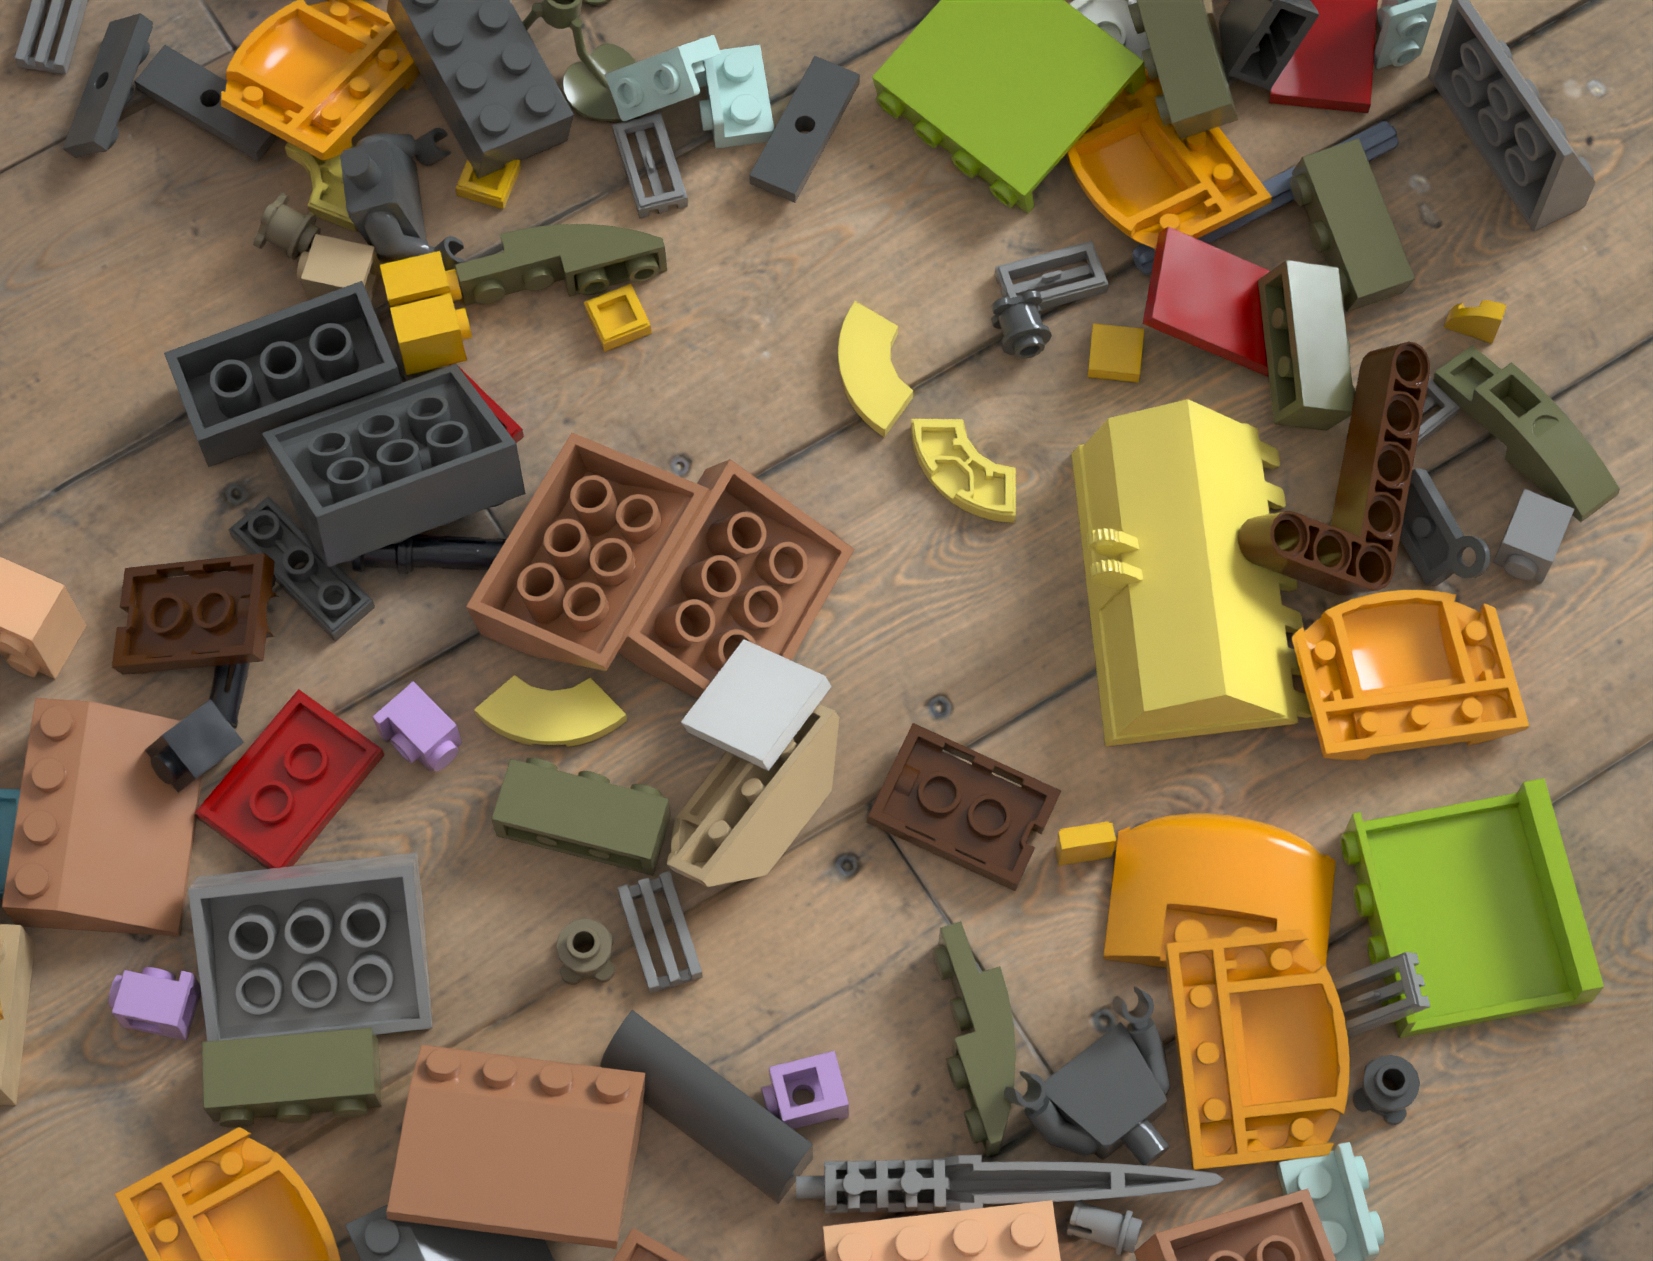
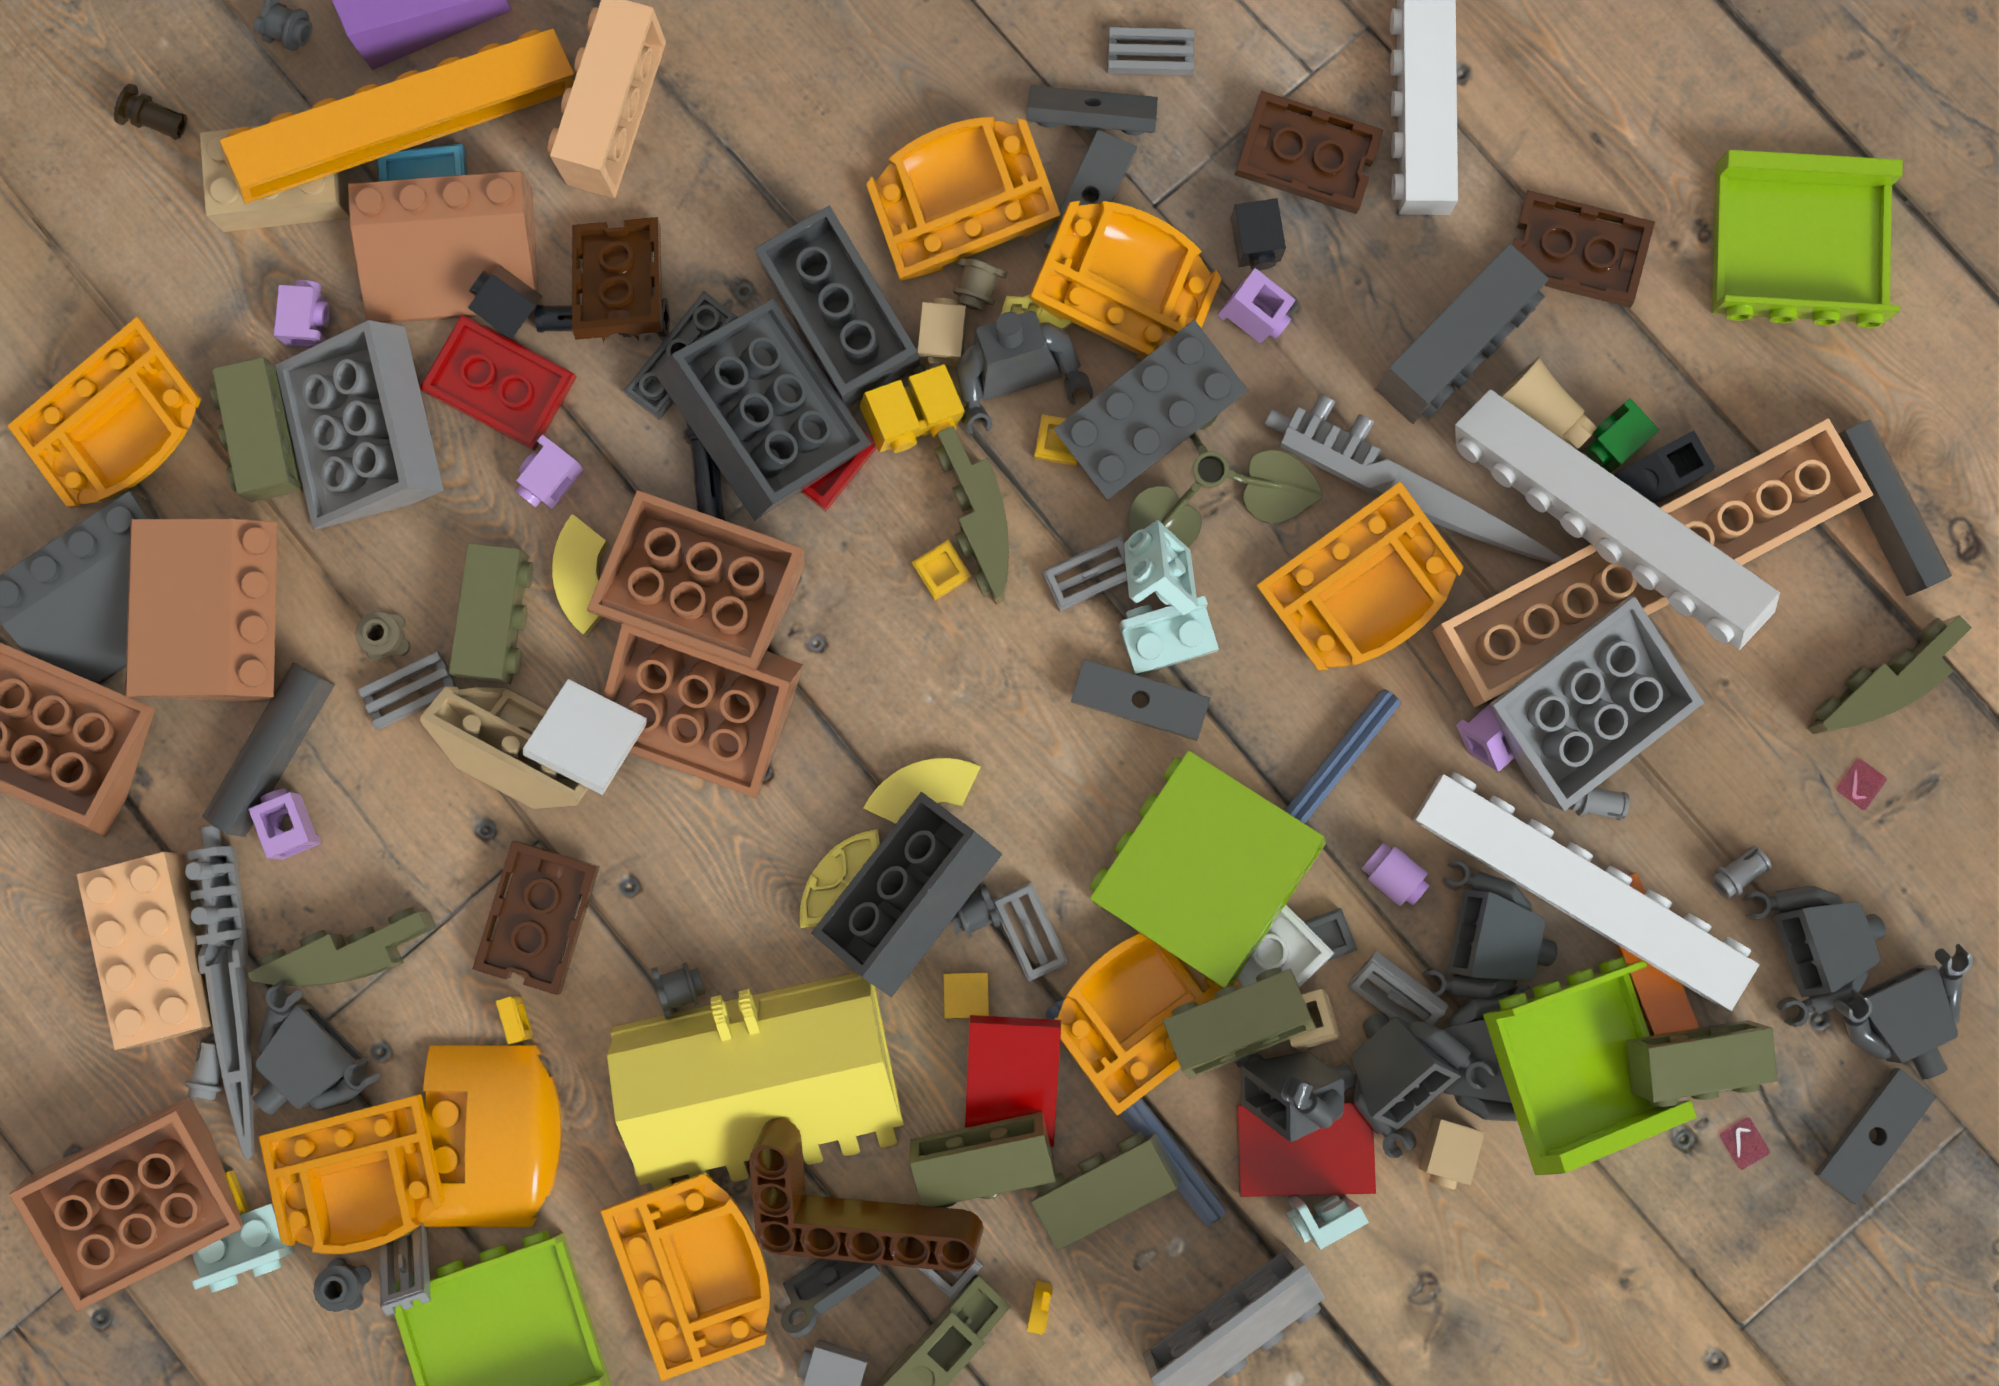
camera: 85 degrees right, 15 degrees up
(176, 229) = (961, 194): none -> light orange slope
(994, 378) = (906, 894): none -> dark grey brick
(1070, 655) = (678, 988): none -> dark grey brick

